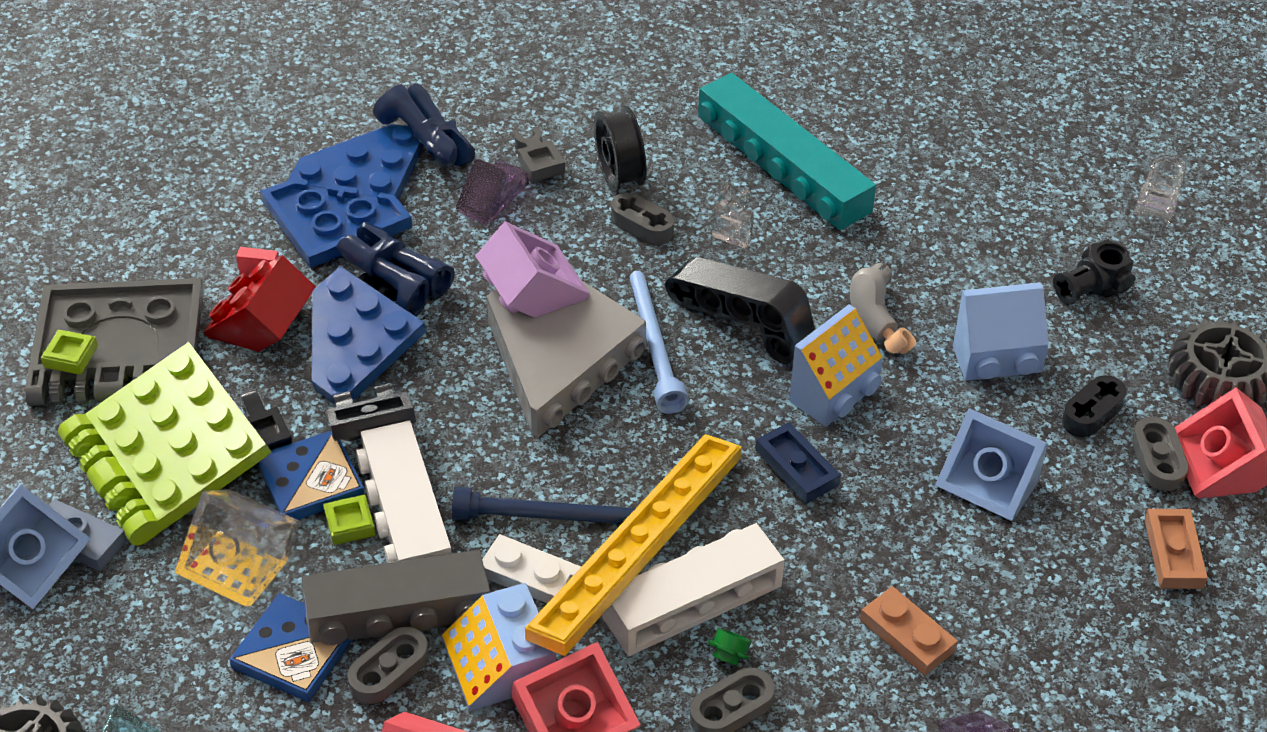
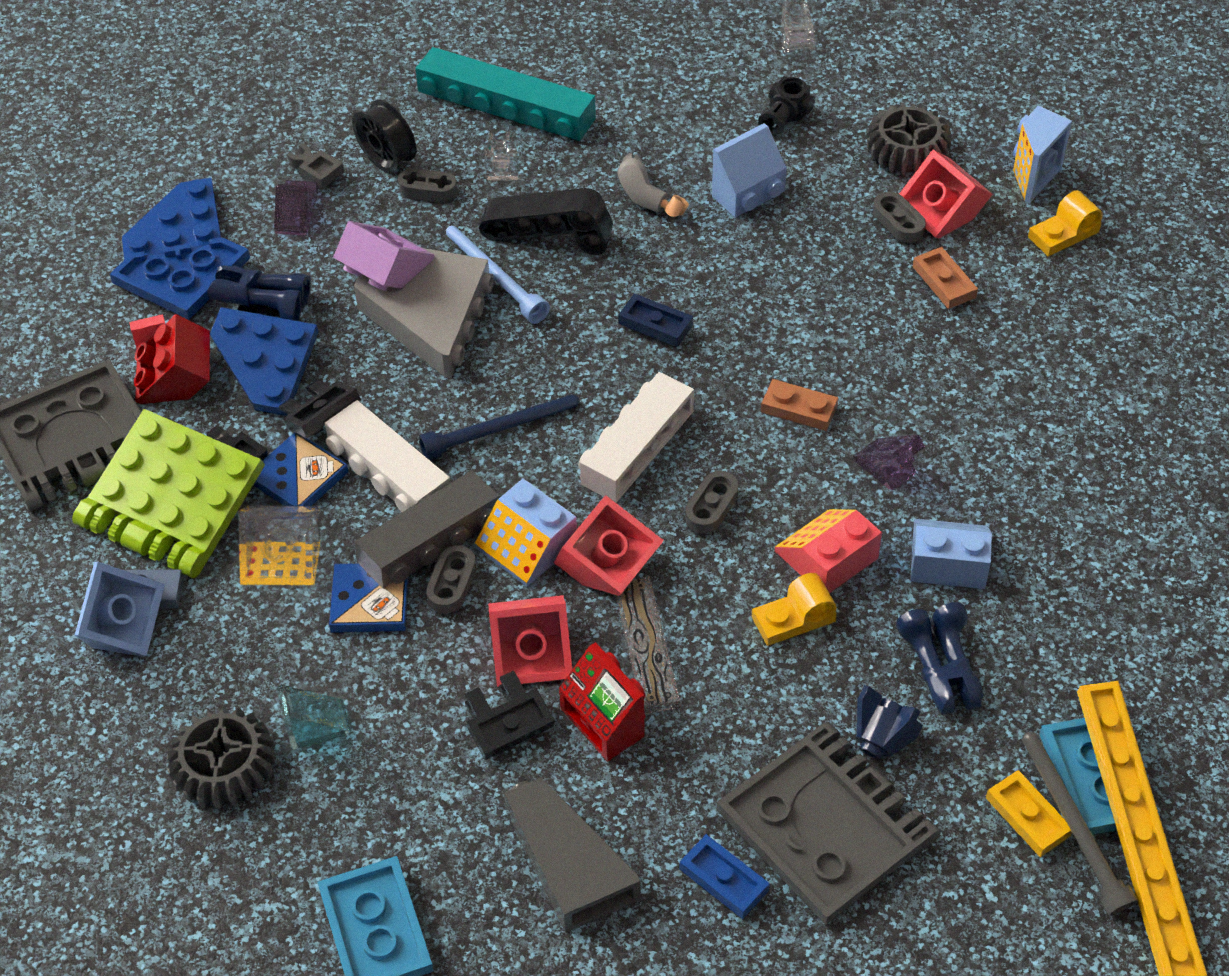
camera: 25 degrees left, 5 degrees up
(69, 352) = (43, 455): lime tile -> none
(349, 519) = (349, 492): lime tile -> none
(430, 128) = (196, 162): dark blue piece -> none
(516, 563) = (505, 471): white plate -> none
(632, 546) = (581, 421): yellow tile -> none
(730, 646) = (687, 464): green plate -> none
(835, 367) = (646, 242): slope -> none
(992, 465) = (793, 267): light blue slope -> none
(1100, 410) = (831, 200): black beam -> none

